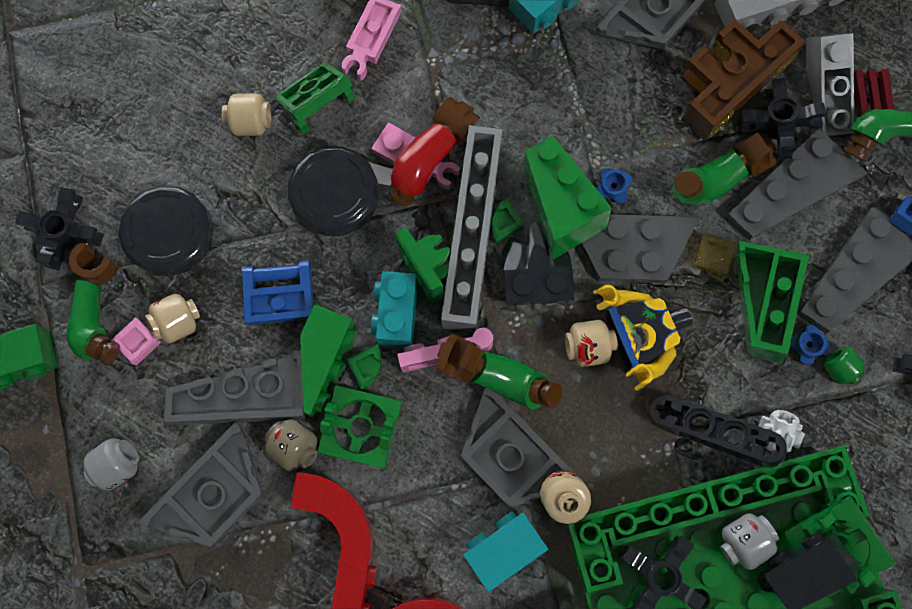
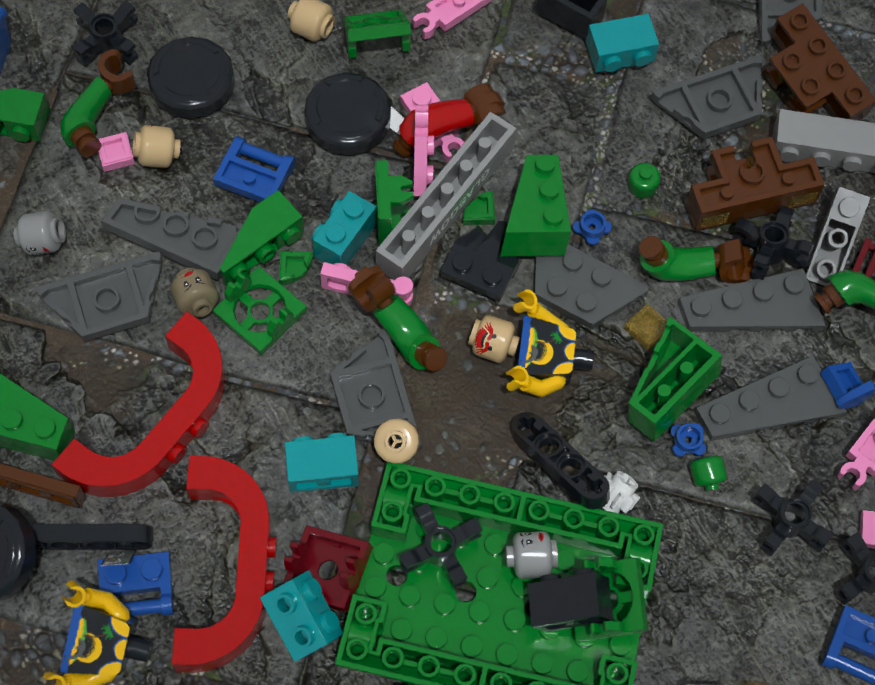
camera: 20 degrees right, 10 degrees down
(427, 194) = (423, 146): none -> bright pink plate
(634, 116) = (643, 180): none -> green piece

